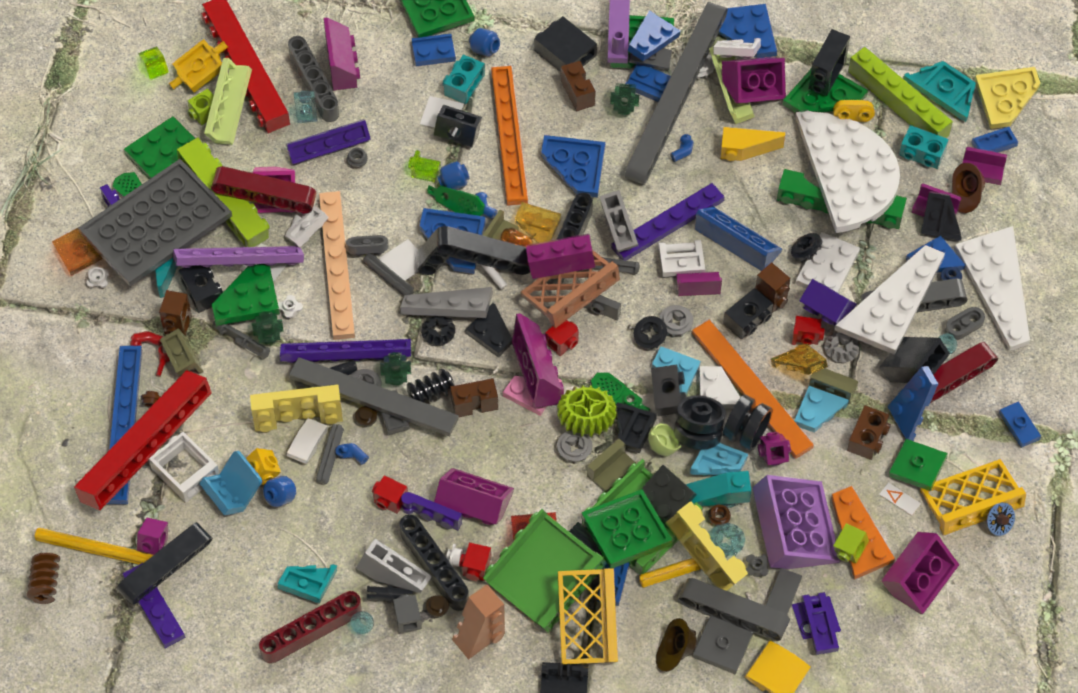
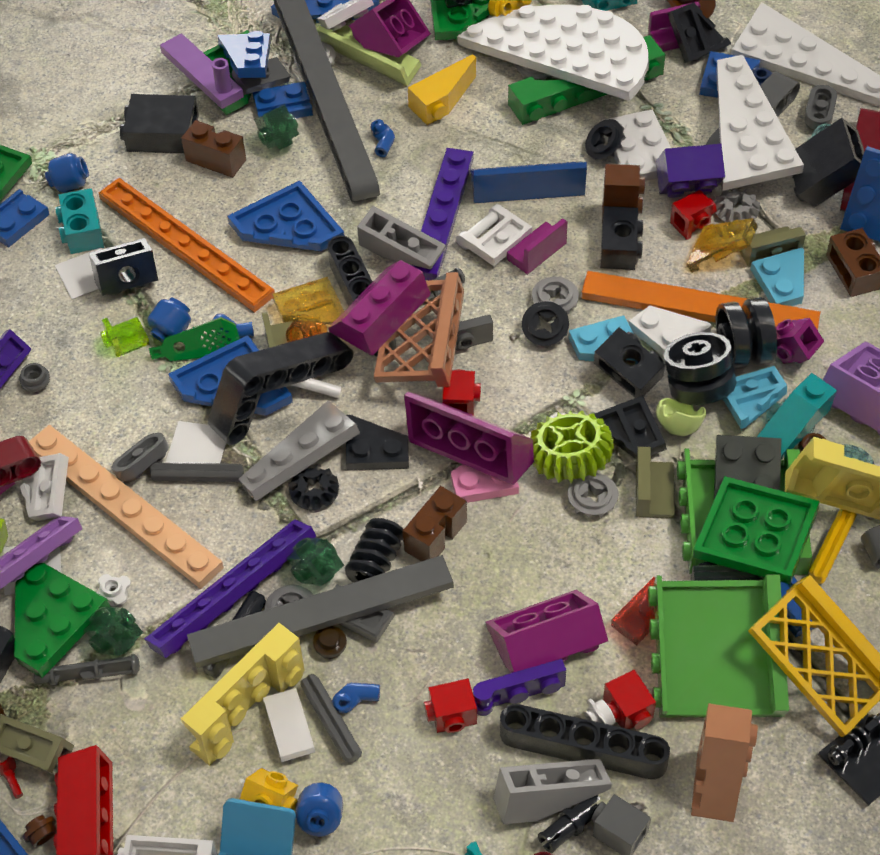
camera: 40 degrees left, 5 degrees down
(437, 606) = (638, 789): dark brown plate -> none
(620, 392) = (552, 404): green piece -> none

